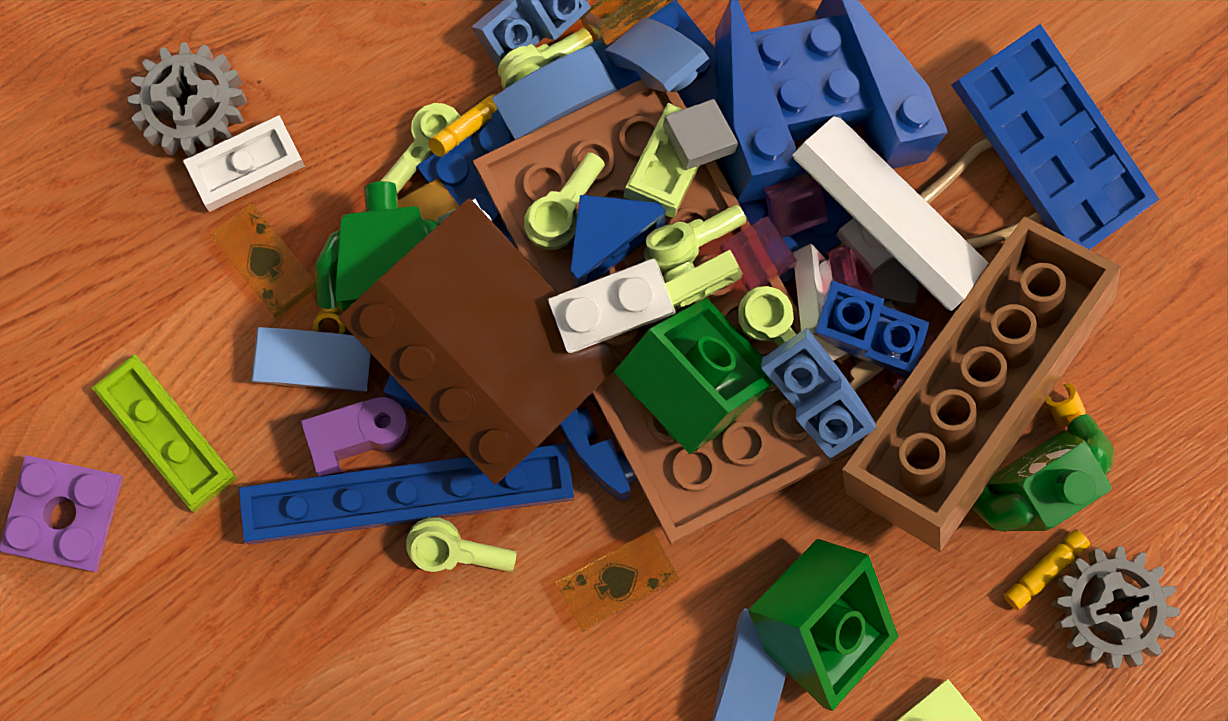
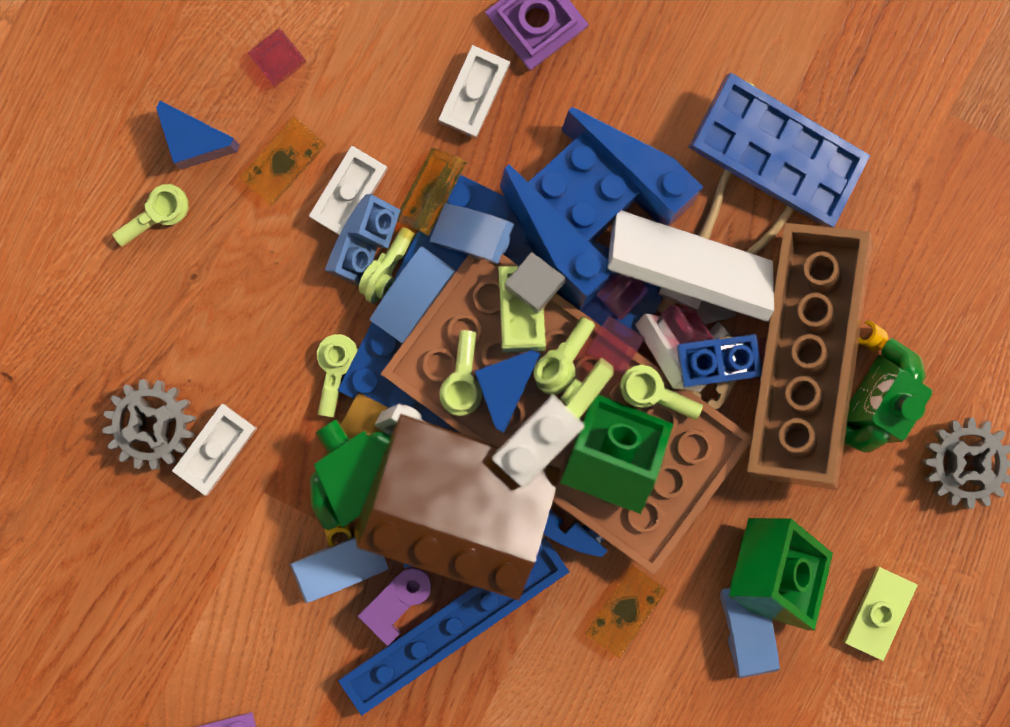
camera: 25 degrees left, 10 degrees up
(164, 433) = (263, 666): lime tile -> none
(263, 260) = (265, 510): clear yellow tile -> none
(437, 546) = (494, 650): yellowish green plate -> none
(463, 127) = (358, 345): yellow wheel -> none
(819, 392) = (707, 425): medium blue slope -> none
(1046, 569) = (911, 457): yellow wheel -> none

